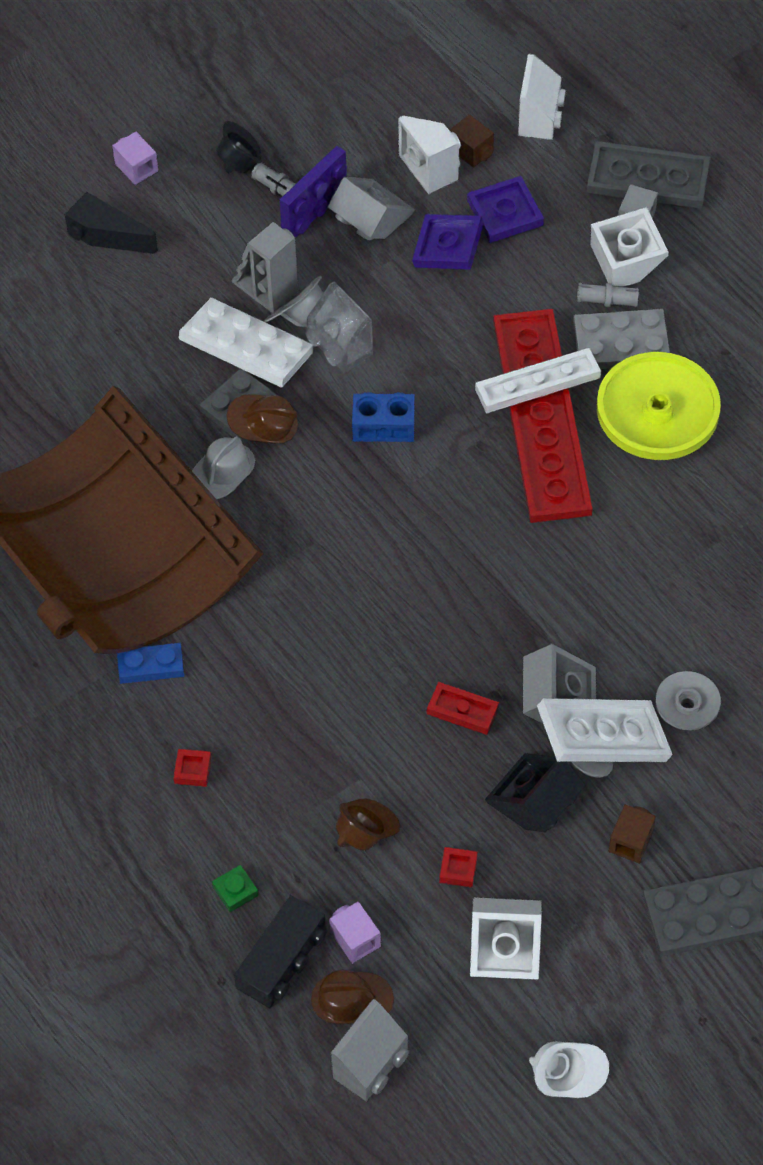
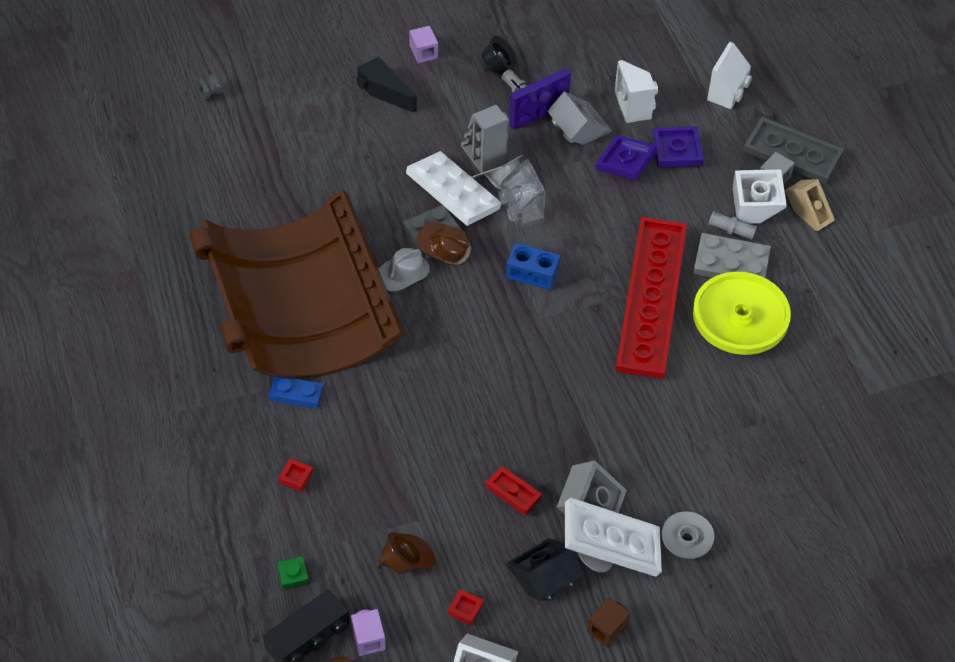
camera: 15 degrees right, 5 degrees down
(475, 140) = (670, 94): reddish brown brick -> none
(537, 380) = (656, 269): white plate -> none
(692, 239) = (810, 203): none -> tan slope

